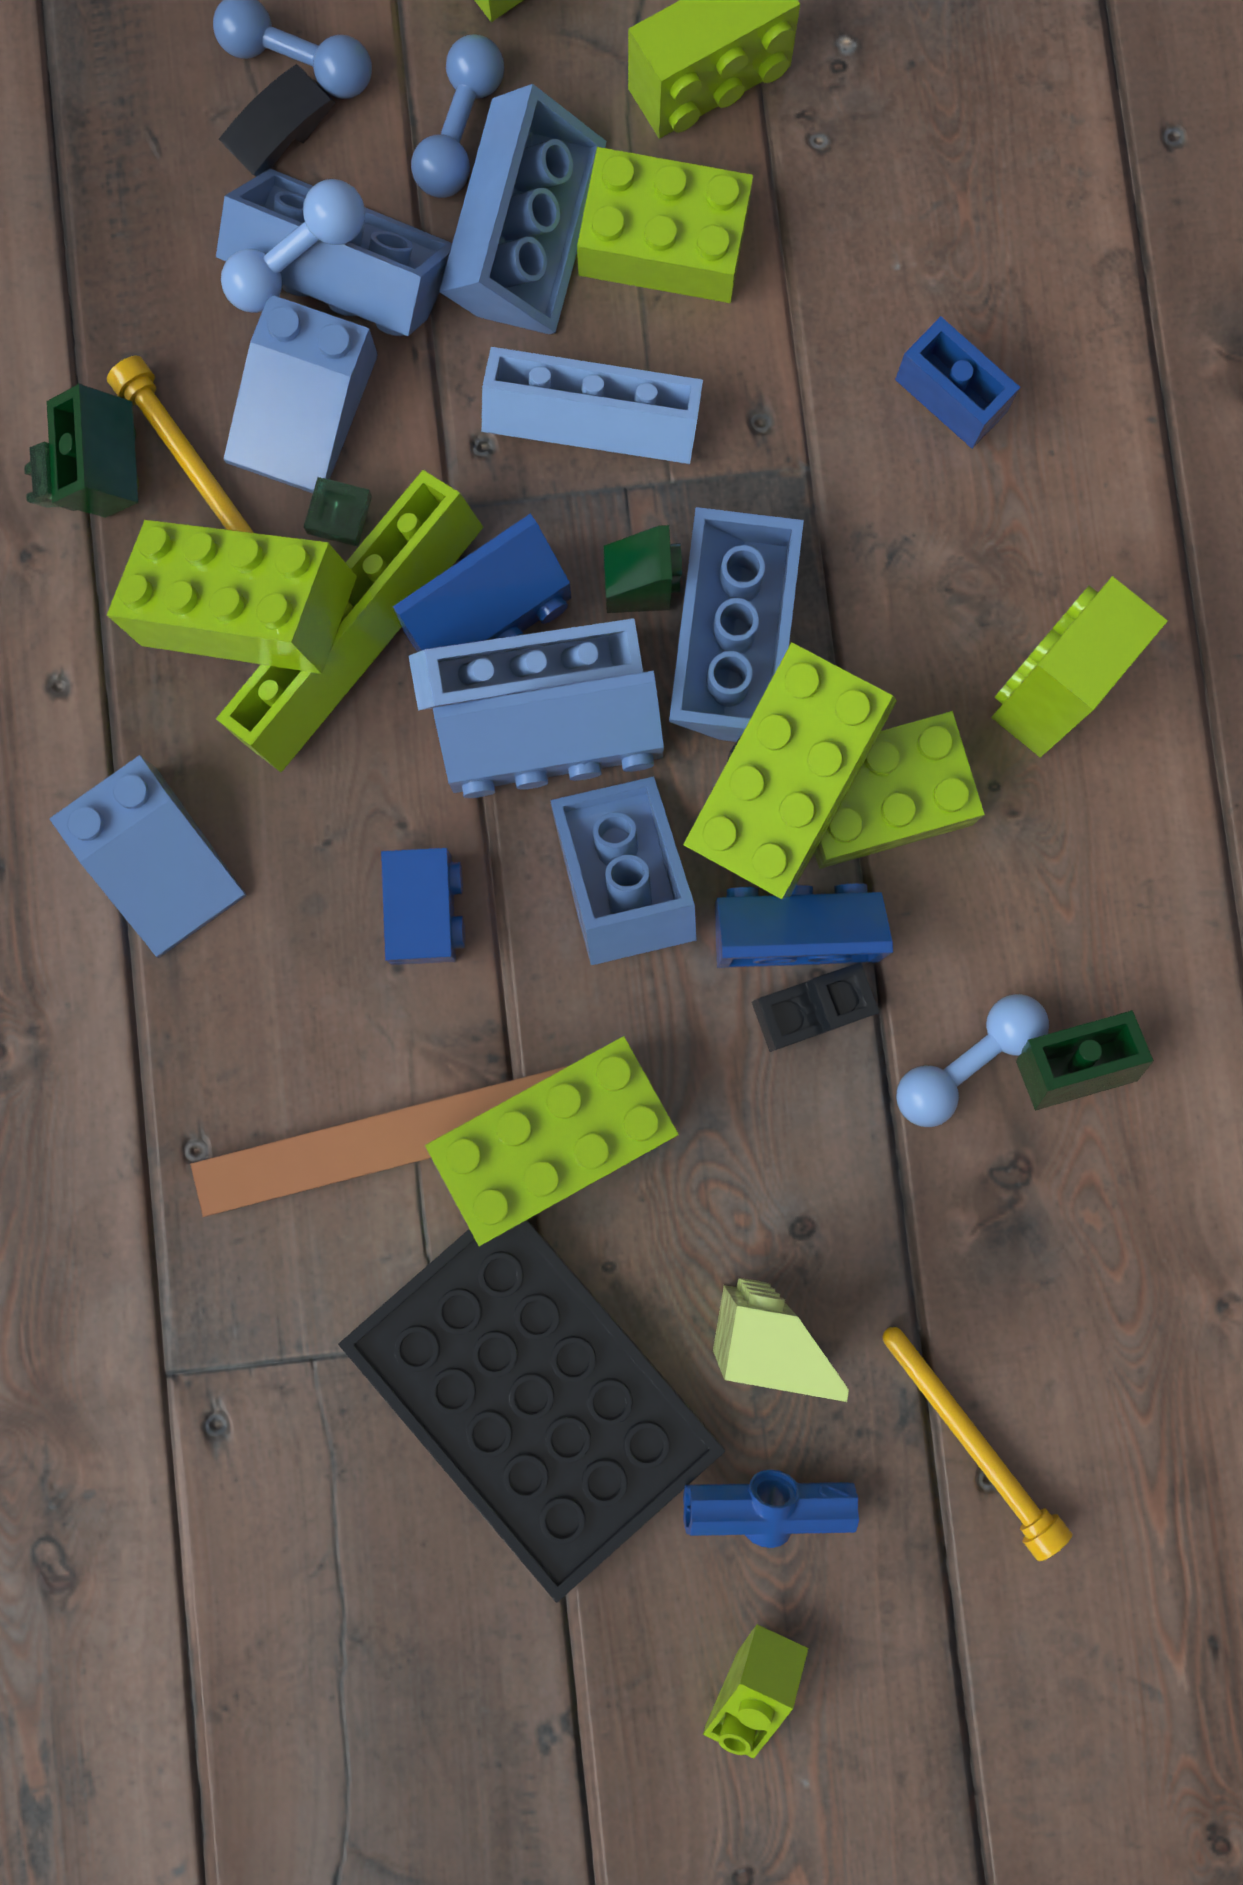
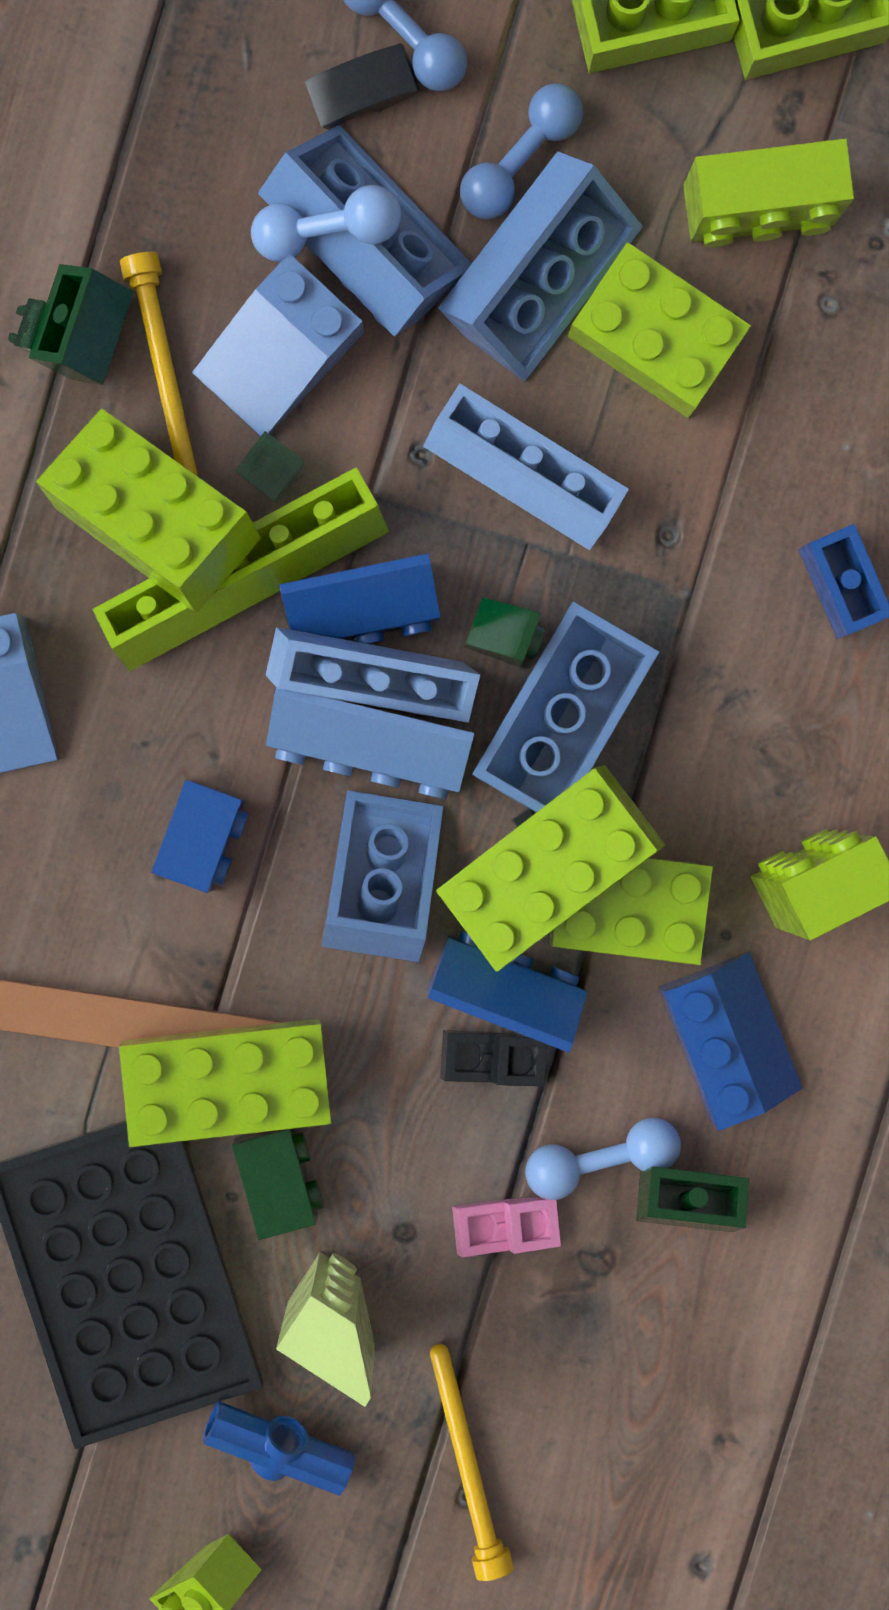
camera: 20 degrees right, 5 degrees up
(648, 1226) = (277, 1181): none -> dark green brick
(904, 1174) = (506, 1225): none -> bright pink slope
(1046, 887) = (731, 1041): none -> blue slope

